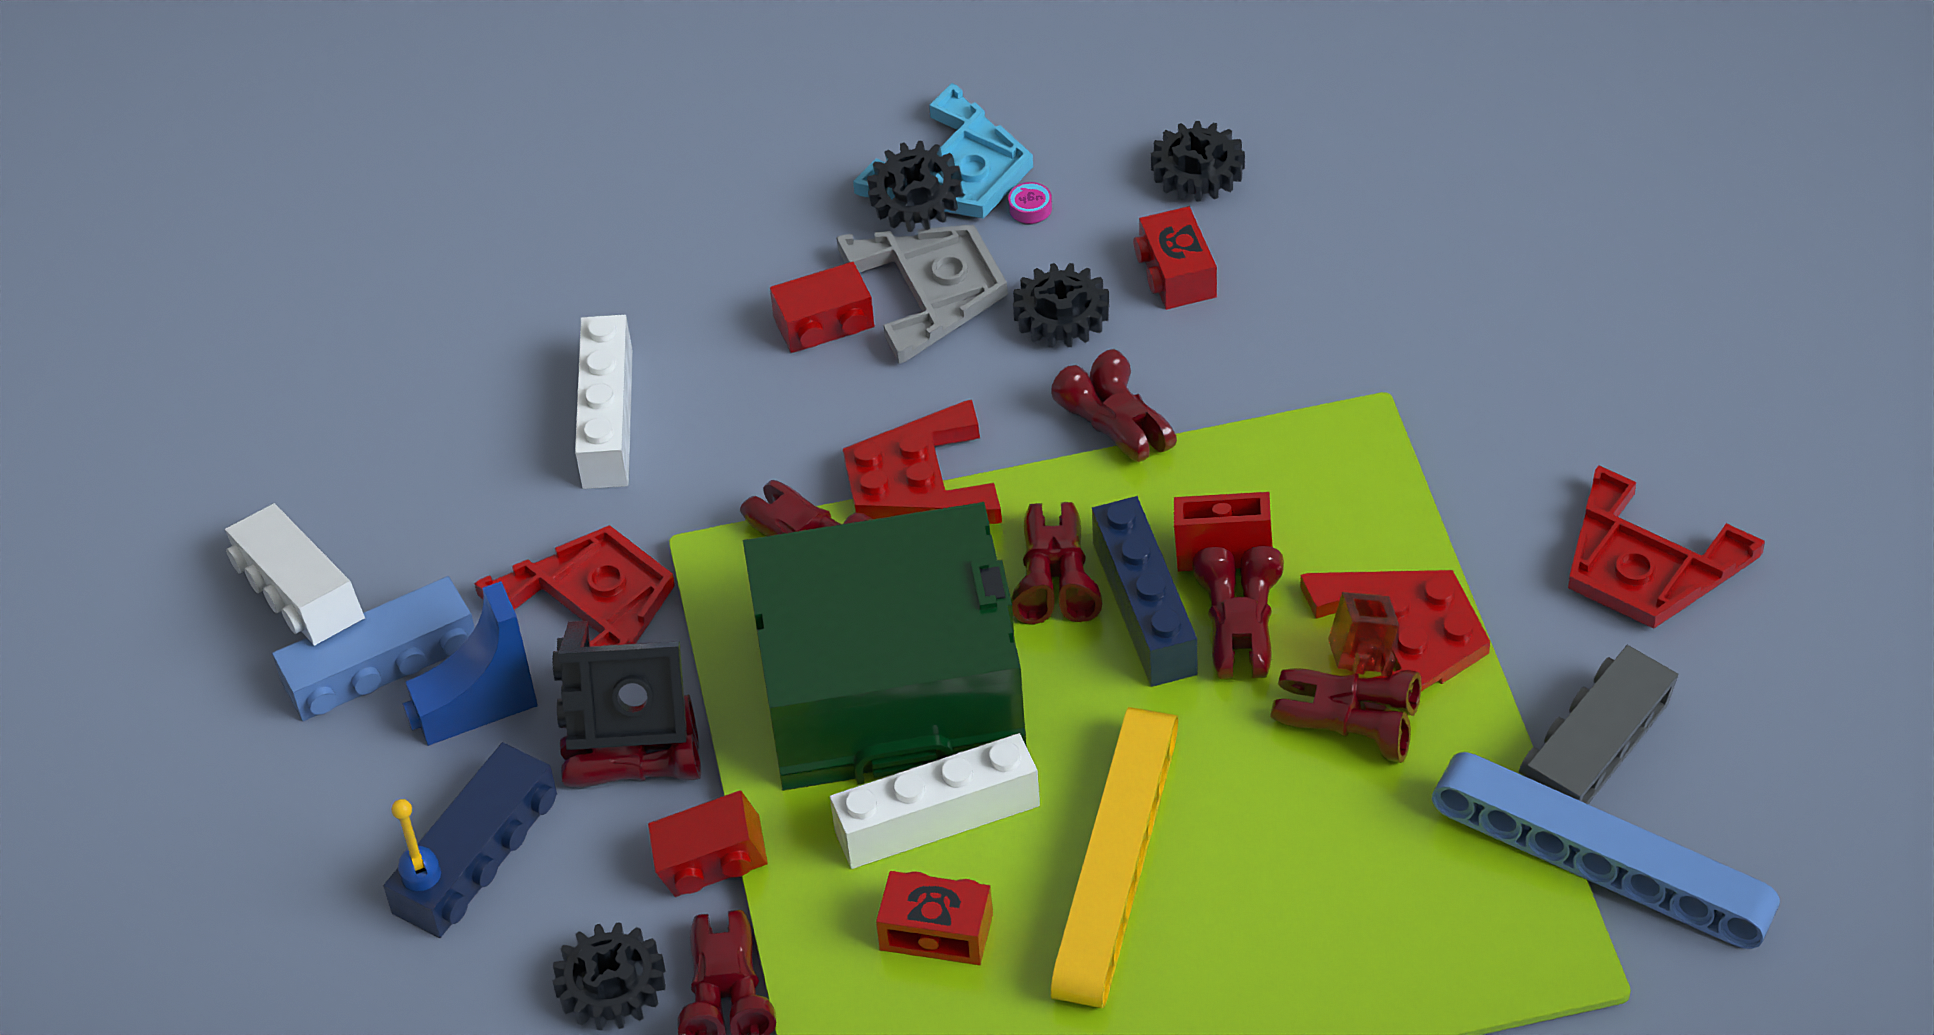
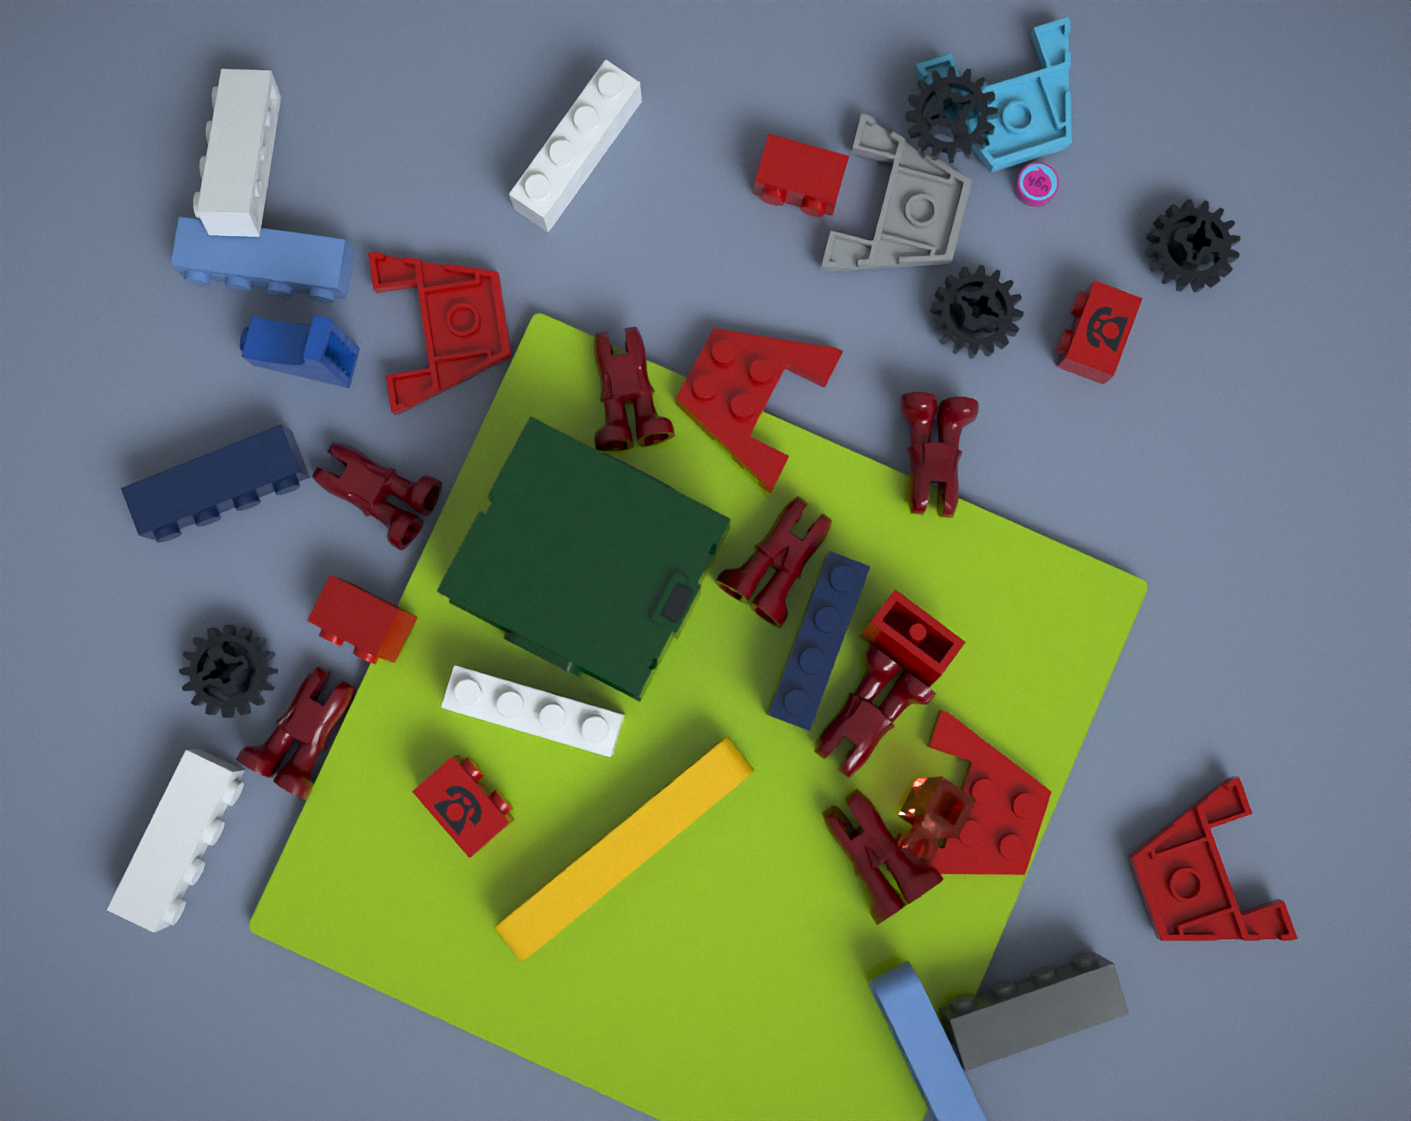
camera: 30 degrees right, 35 degrees up
(416, 856) = (153, 498): hinge -> none
(591, 687) = (352, 455): black bracket -> none

